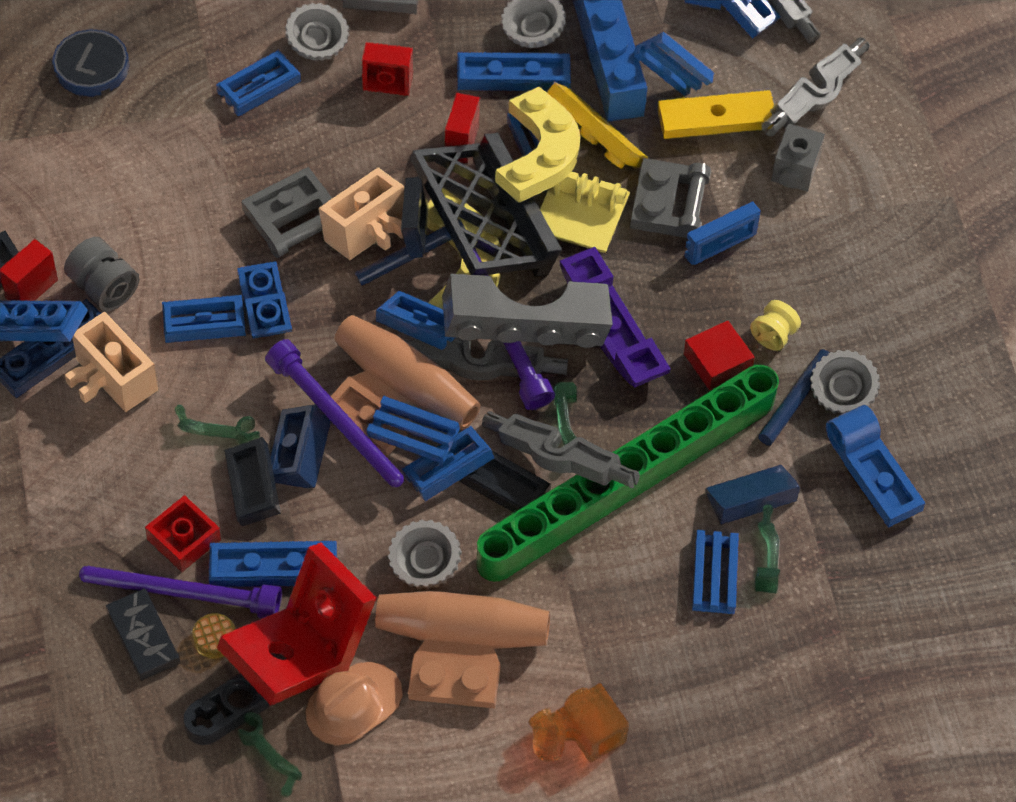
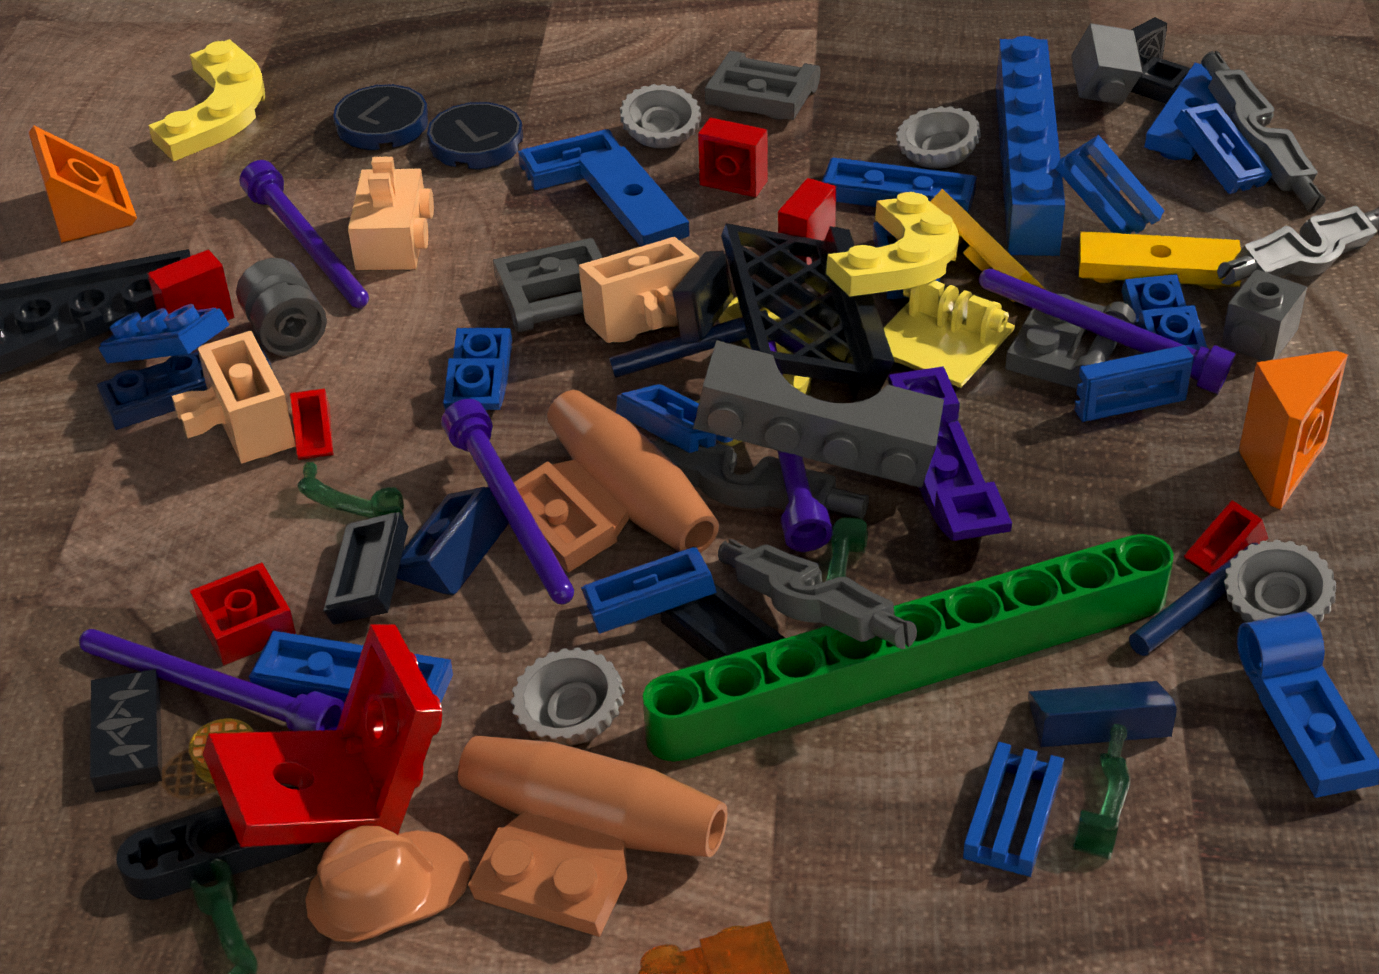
camera: 20 degrees right, 15 degrees down
(30, 152) = (266, 186): none -> dark purple piece
(146, 172) = (389, 217): none -> light nougat brick
(167, 374) = (312, 424): none -> red piece
(174, 70) = (475, 134): none -> tile
(203, 324) = (391, 380): blue tile -> none
(322, 118) = (633, 197): none -> blue tile
(417, 415) = (616, 526): blue tile -> none
(718, 354) = (1088, 517): red piece -> none
(730, 171) = (1163, 310): none -> blue slope
(770, 206) = (1208, 366): none -> dark purple piece
(775, 325) = (1187, 500): light yellow wheel -> none
(804, 349) = (1225, 537): none -> red piece
(829, 253) = (1289, 419): none -> orange slope

